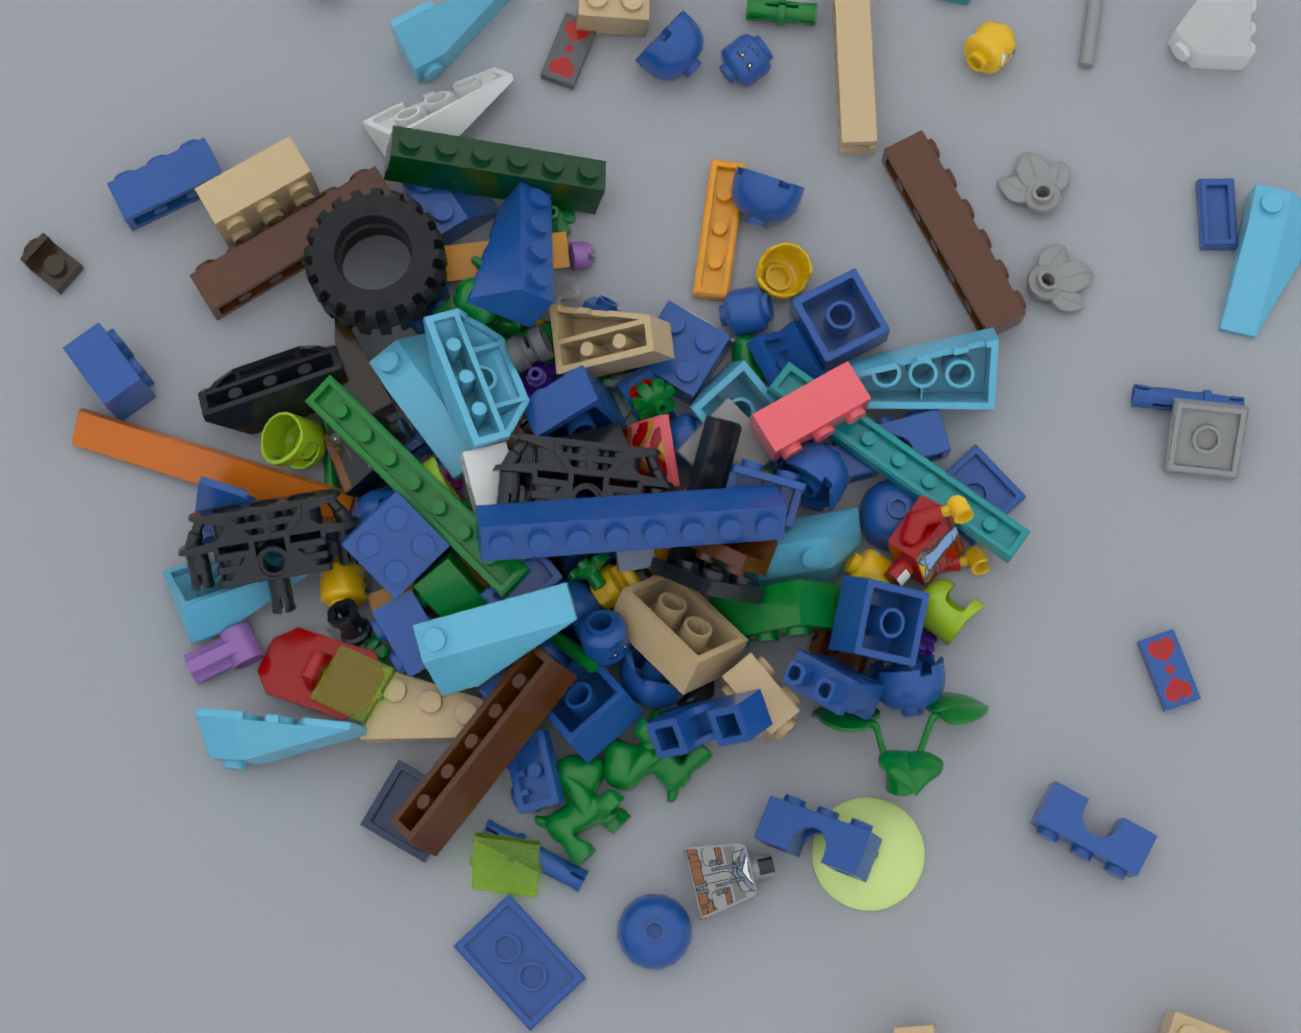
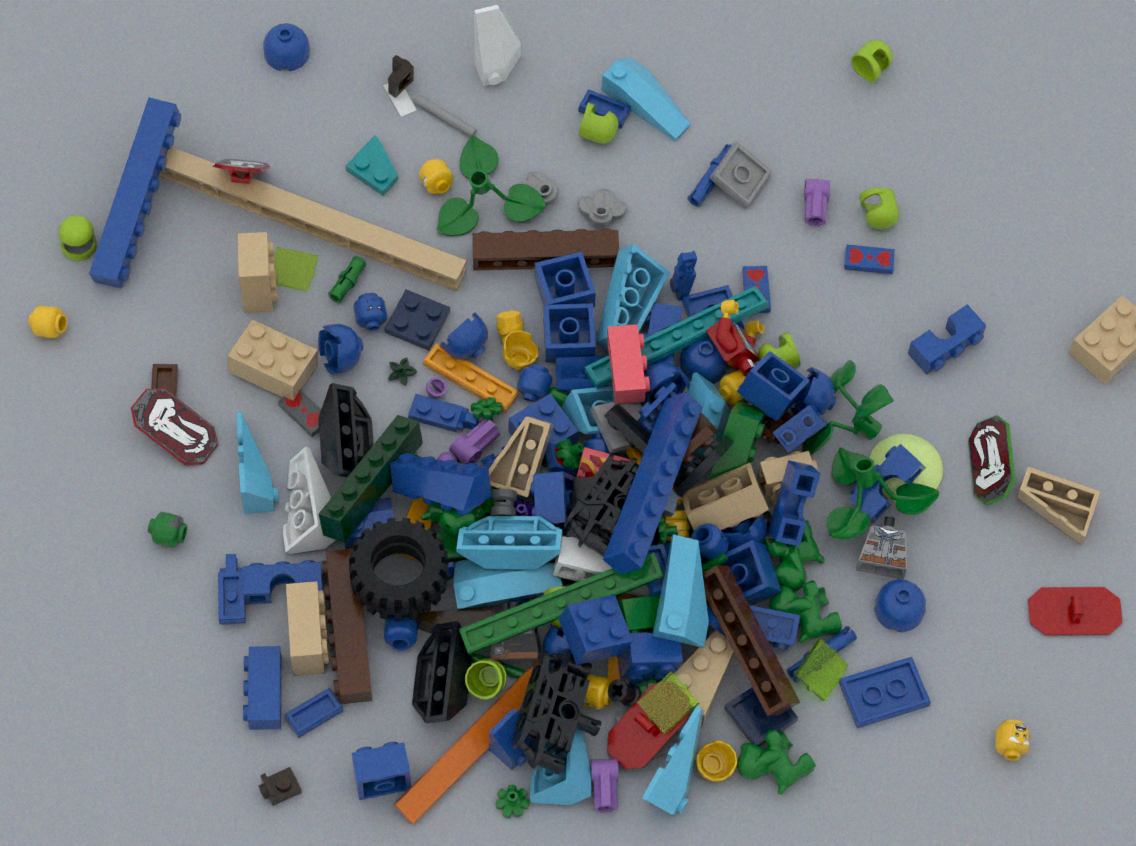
camera: 70 degrees left, 15 degrees down
(156, 550) = (512, 801): none -> green plant
(165, 257) = (313, 712): none -> blue tile
(279, 84) = (231, 592): none -> blue hinge
(305, 112) = (262, 579): none -> blue arch
(309, 313) = (400, 634): none -> blue head
(313, 781) = (716, 761): none -> yellow hair
(336, 834) = (756, 762): none -> green animal
(557, 112) = (344, 430): none -> black wedge
(614, 273) = (470, 447): none -> medium lavender piece
(648, 217) = (441, 414): none -> blue hinge
(672, 190) = (439, 384): none -> medium lavender hinge
(677, 269) = (486, 409): none -> green plant
(686, 140) = (401, 371): none -> dark green plant
(770, 125) = (417, 319): none -> dark blue plate
(817, 240) = (509, 322): none -> yellow piece
(820, 781) = (853, 467): none -> green plant
(909, 282) = (564, 281): none -> blue brick
(930, 969) = (991, 460): none -> shield
(949, 100) = (476, 162): none -> green plant
(998, 427) = (684, 274): none -> blue hinge
(1047, 535) = (757, 277): none -> blue tile
(1174, 215) = (598, 128): none -> lime helmet
(1228, 555) = (816, 196): none -> medium lavender piece
(1252, 656) = (880, 215): none -> lime helmet

